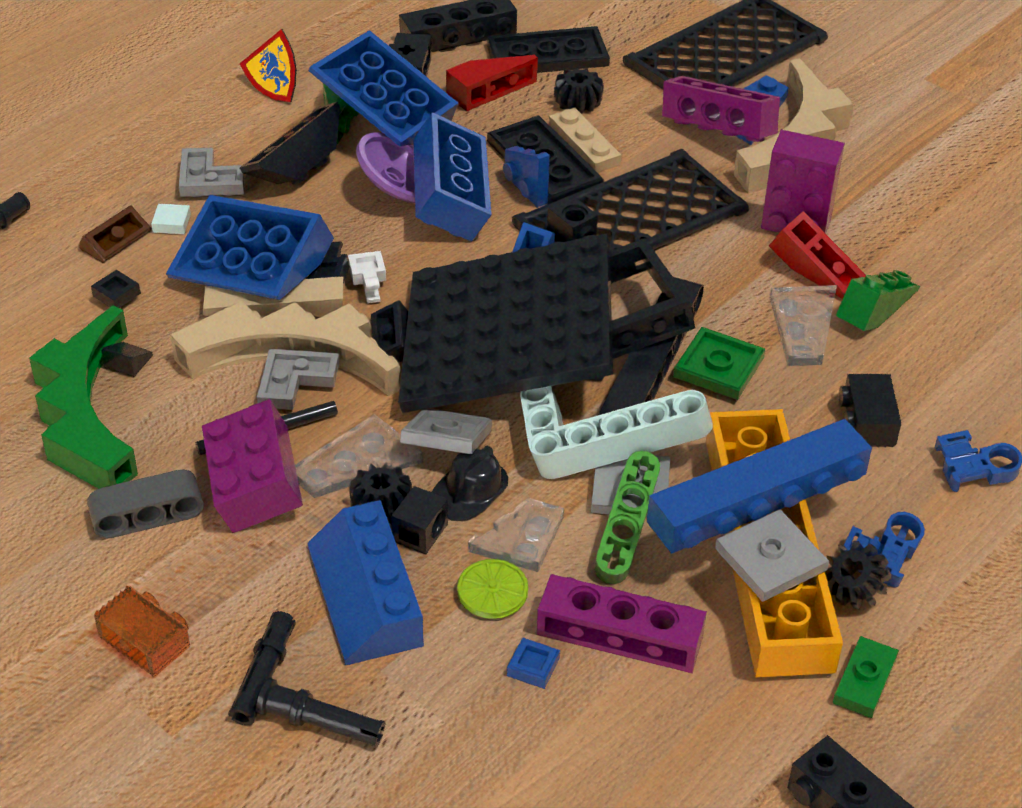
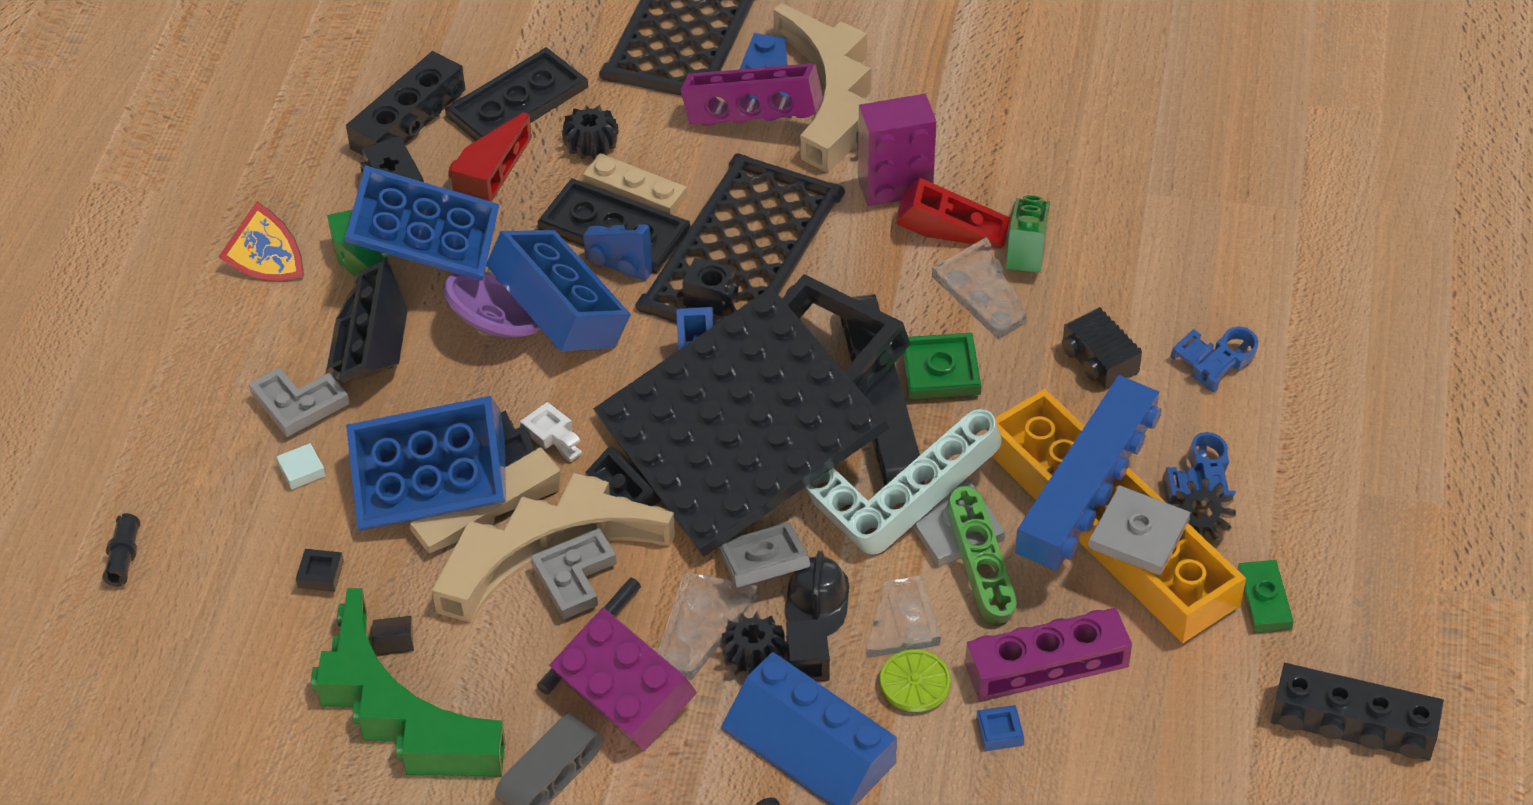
camera: 30 degrees left, 5 degrees up
(114, 234) = (258, 512): reddish brown slope -> none

